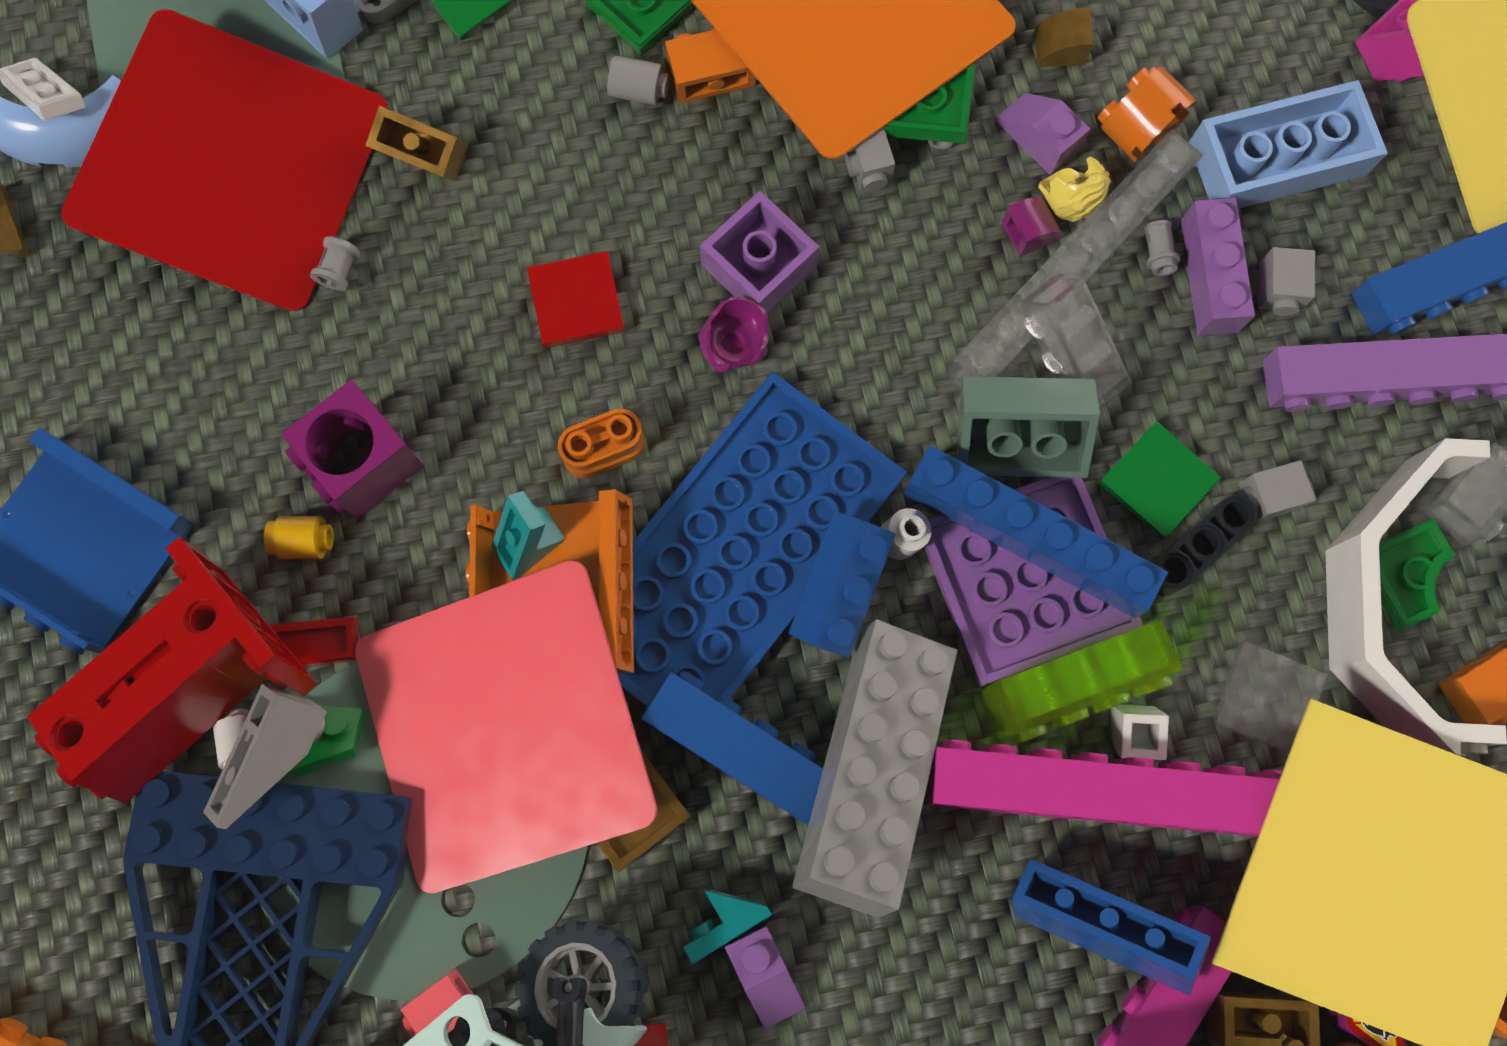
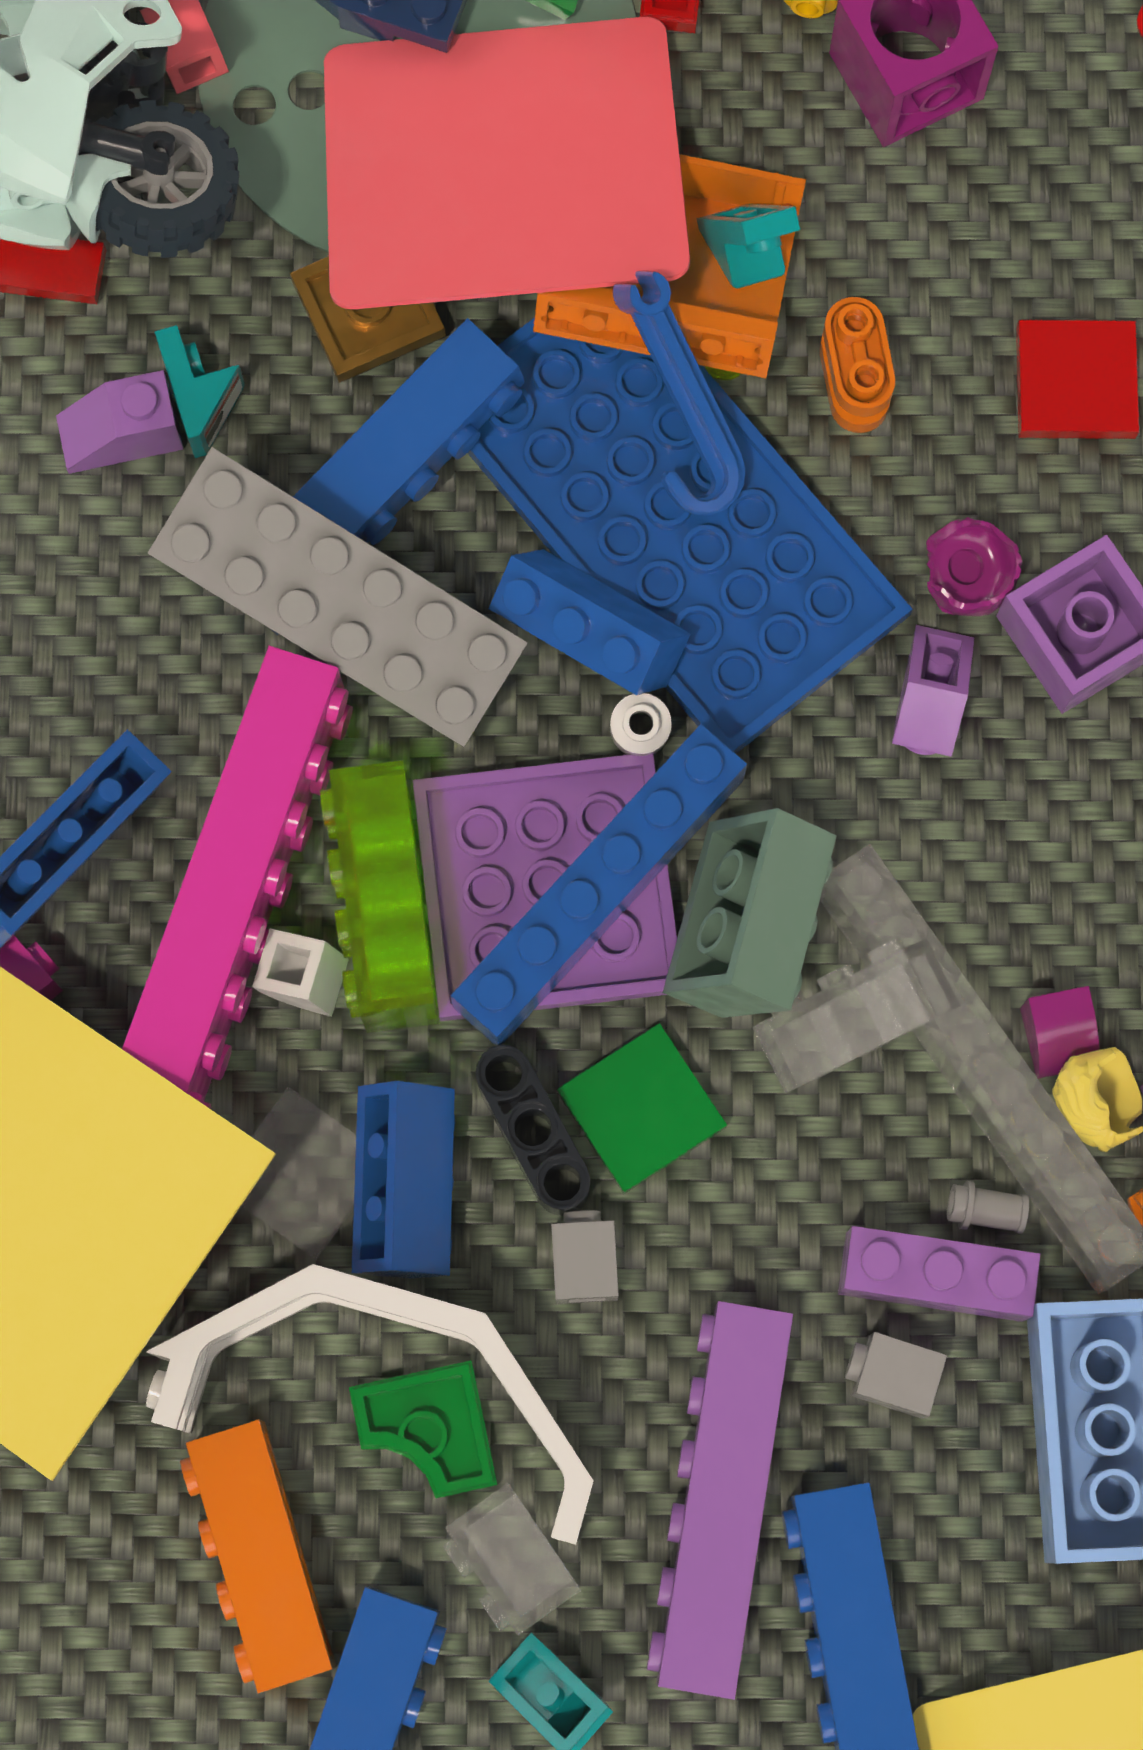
camera: 105 degrees right, 0 degrees up
(662, 544) = (689, 393): none -> blue piece
(825, 346) = (934, 691): none -> medium lavender slope
(1265, 622) = (403, 1180): none -> blue brick

